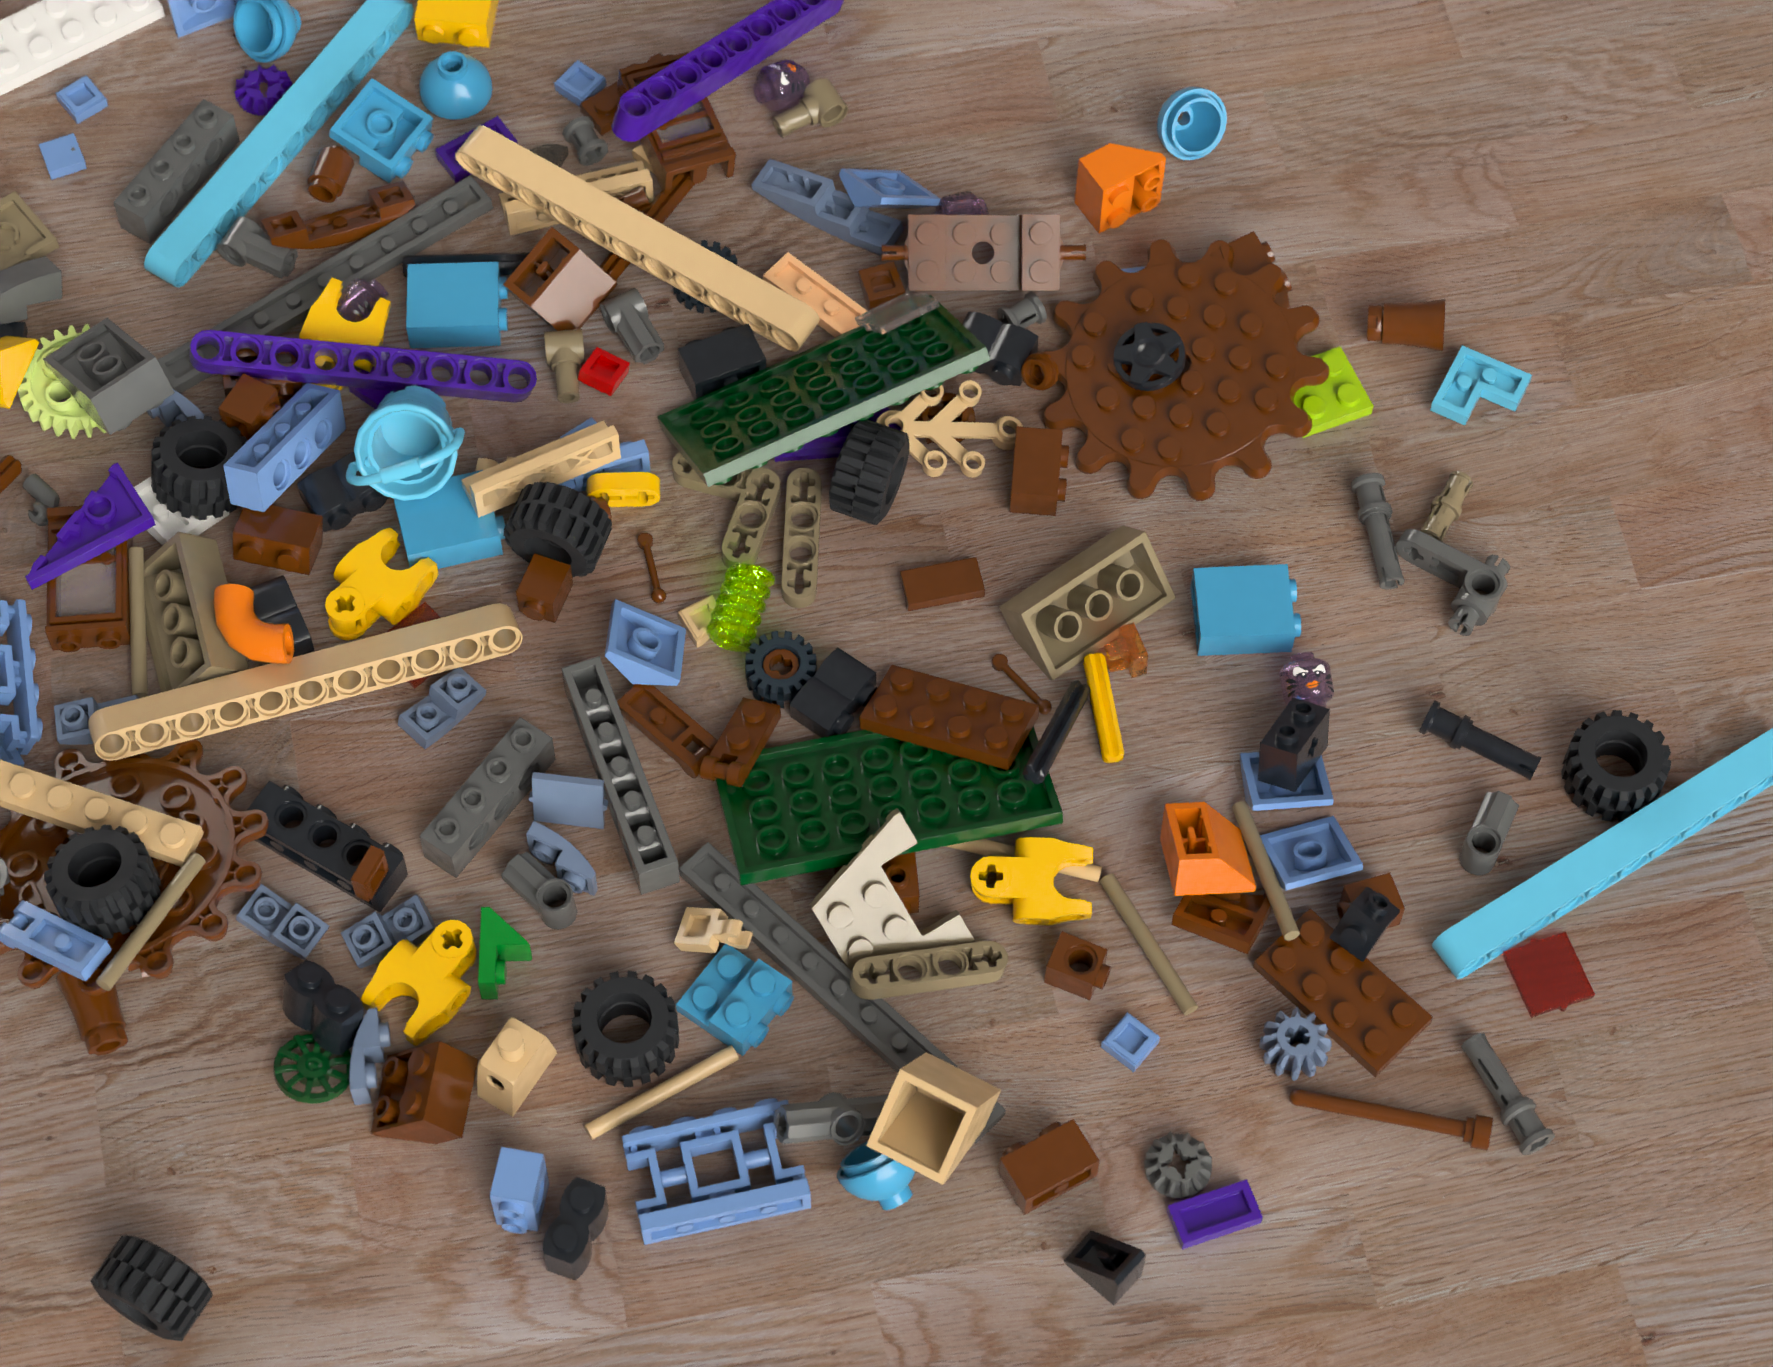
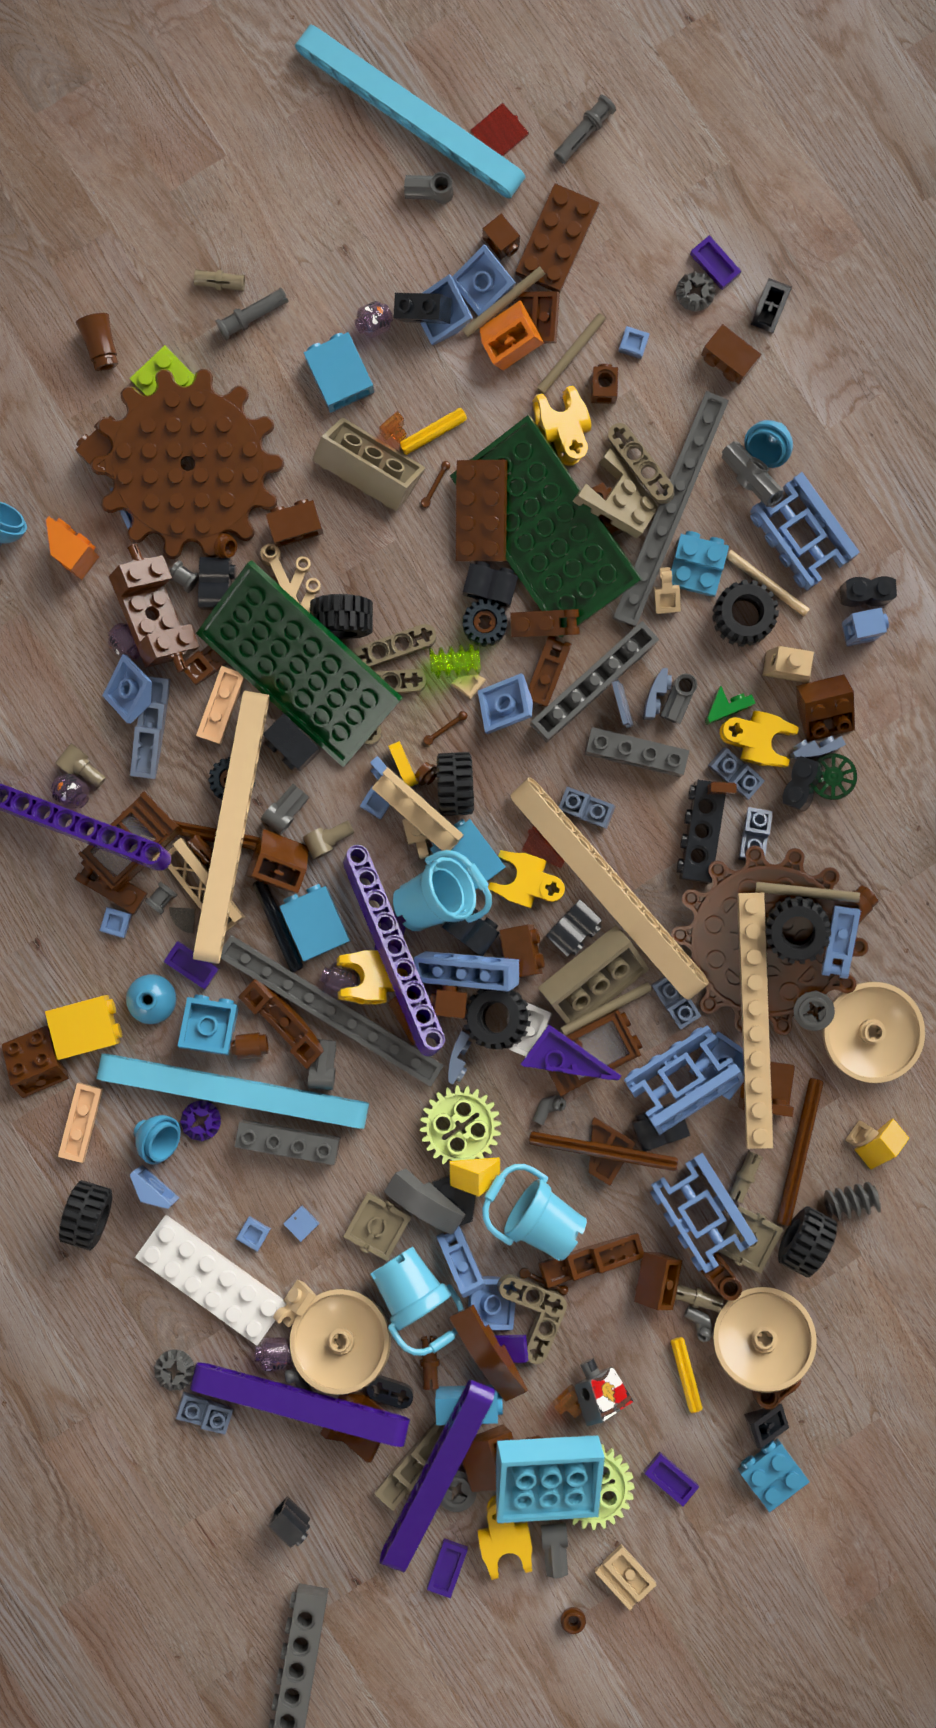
camera: 110 degrees left, 25 degrees up
(110, 375) = (460, 1102): dark grey slope -> none
(246, 631) = (599, 932): orange cylinder -> none
(544, 588) = (490, 781): reddish brown brick -> none
(603, 371) = (325, 811): red plate -> none
(897, 312) = (221, 645): clear piece -> none
(932, 1116) = (740, 414): tan slope -> none
(942, 583) = (388, 554): reddish brown tile -> none
(1056, 732) = (469, 443): black axle -> none
(1149, 356) = (193, 480): black wheel -> none
(1303, 1057) = (611, 246): sand blue gear -> none
(1364, 923) = (521, 228): black bracket -> none
(1461, 571) = (263, 250): dark grey piece -> none
(1462, 733) = (369, 221): black pin -> none
(1473, 1130) = (612, 139): reddish brown piece -> none
(1474, 377) = (120, 292): medium azure plate -> none
(1621, 738) = (354, 109): black tyre -> none

